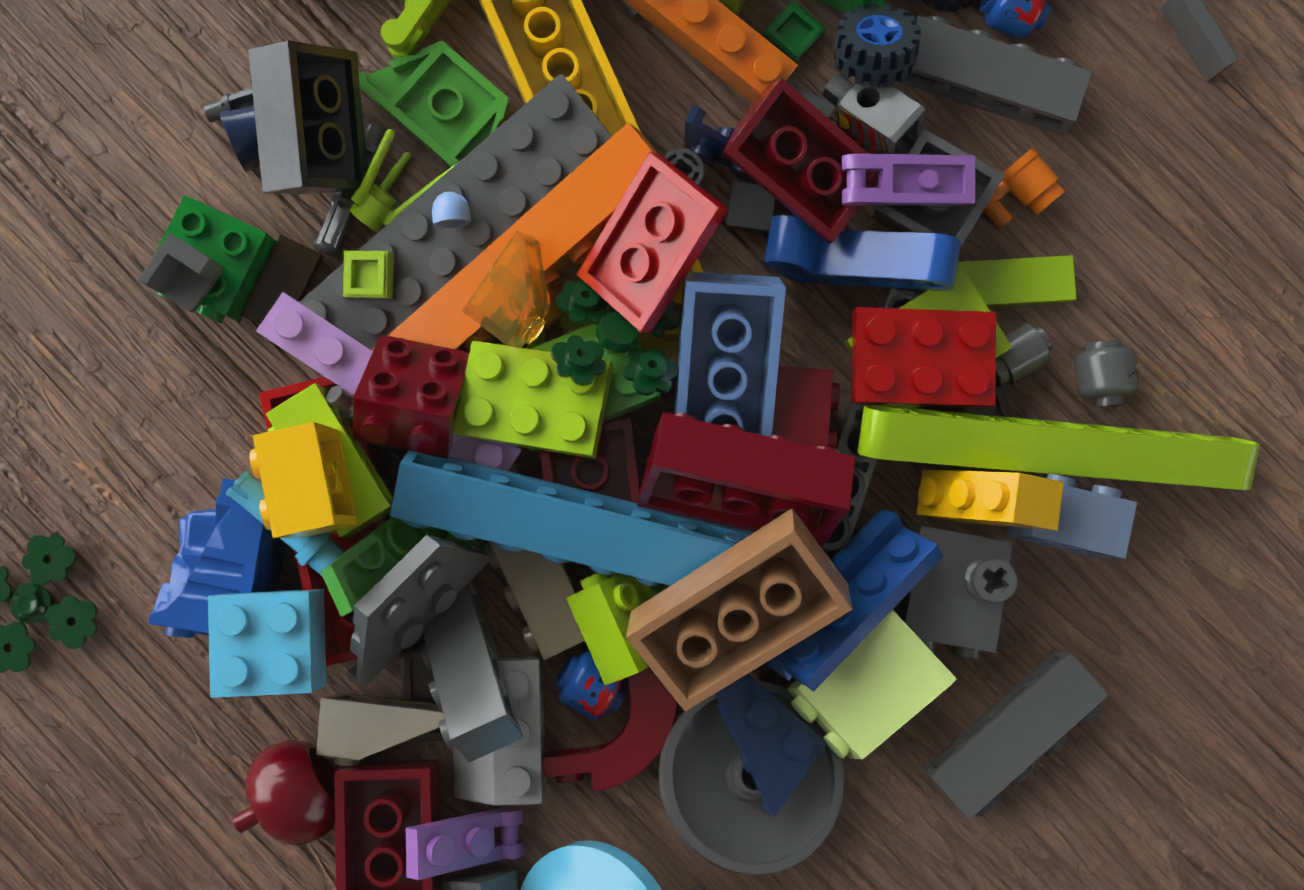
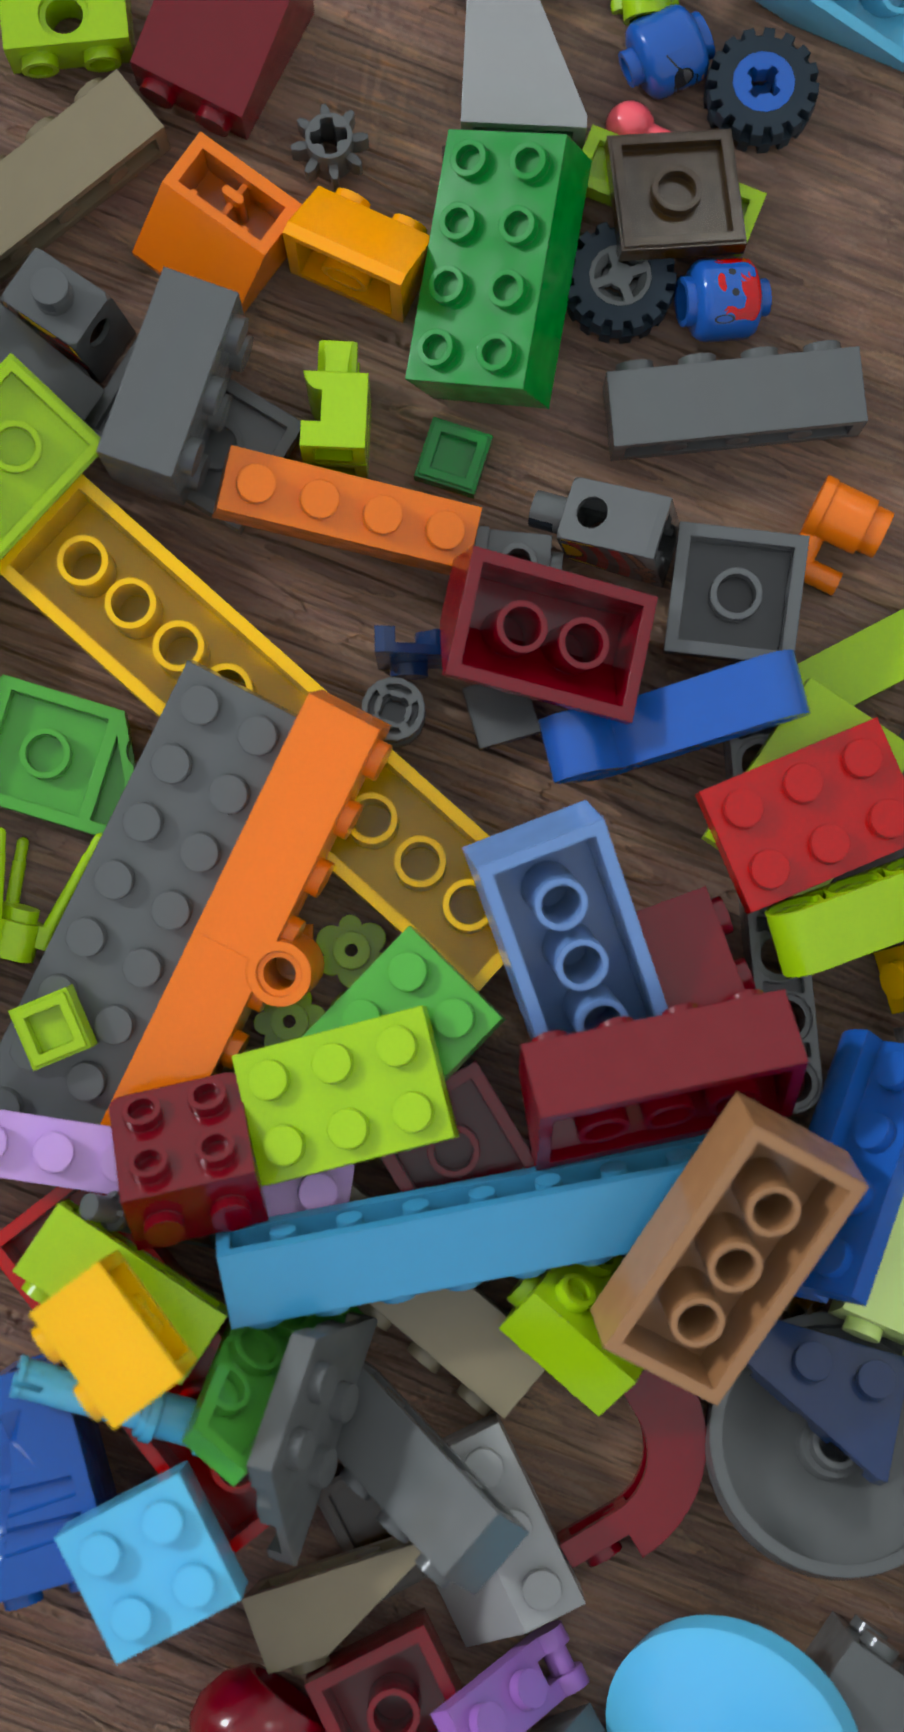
camera: 30 degrees left, 0 degrees up
(450, 211) = (126, 900): light blue hinge -> none
(512, 294) = (260, 977): clear yellow slope -> none
(584, 689) = (571, 1431): blue head -> none
(615, 333) = (414, 967): dark green plant -> none
(651, 242) = (407, 834): plate -> none
(877, 45) = (572, 440): black wheel -> none
(910, 179) = (694, 600): medium lavender plate -> none

